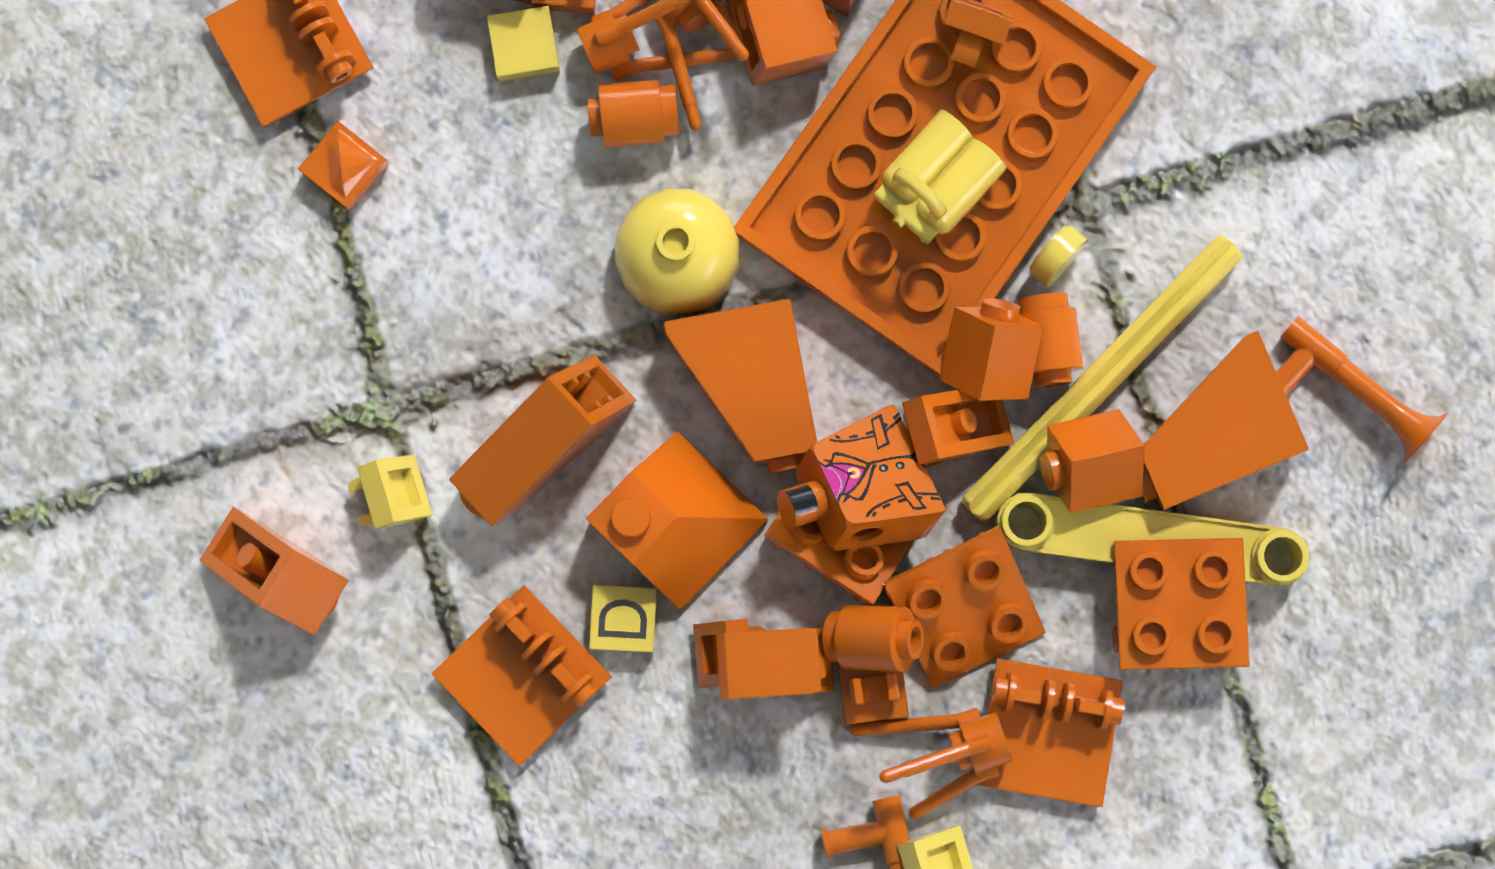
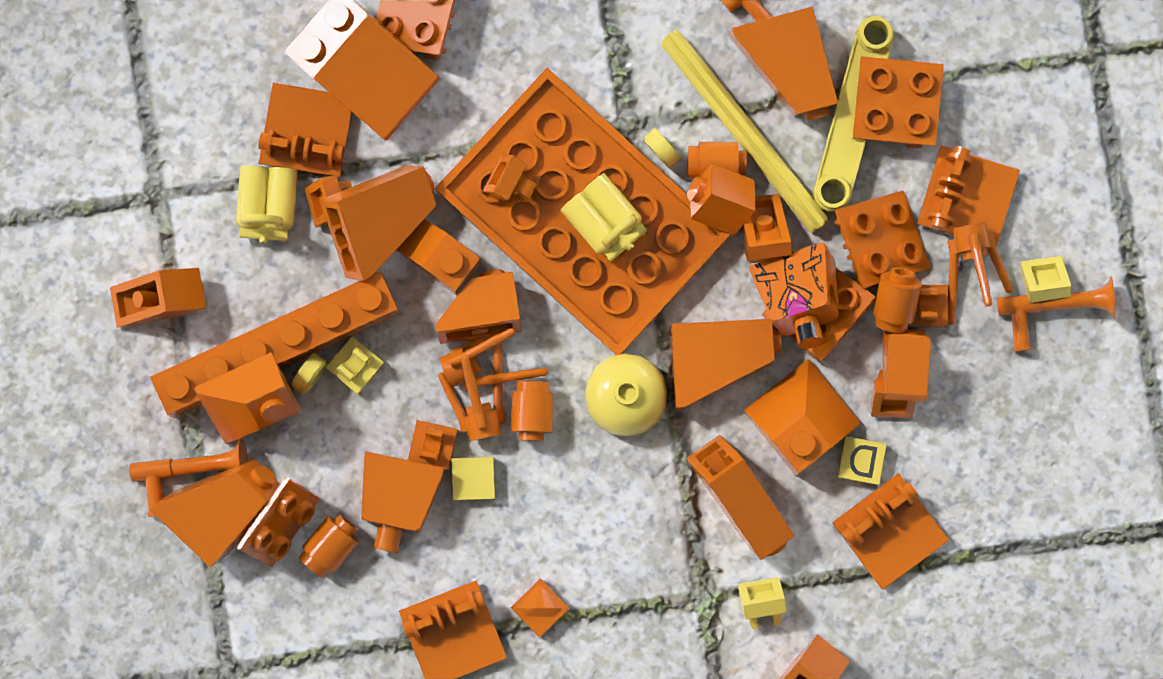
camera: 80 degrees left, 0 degrees up
(1093, 461) = (800, 144): orange brick -> none

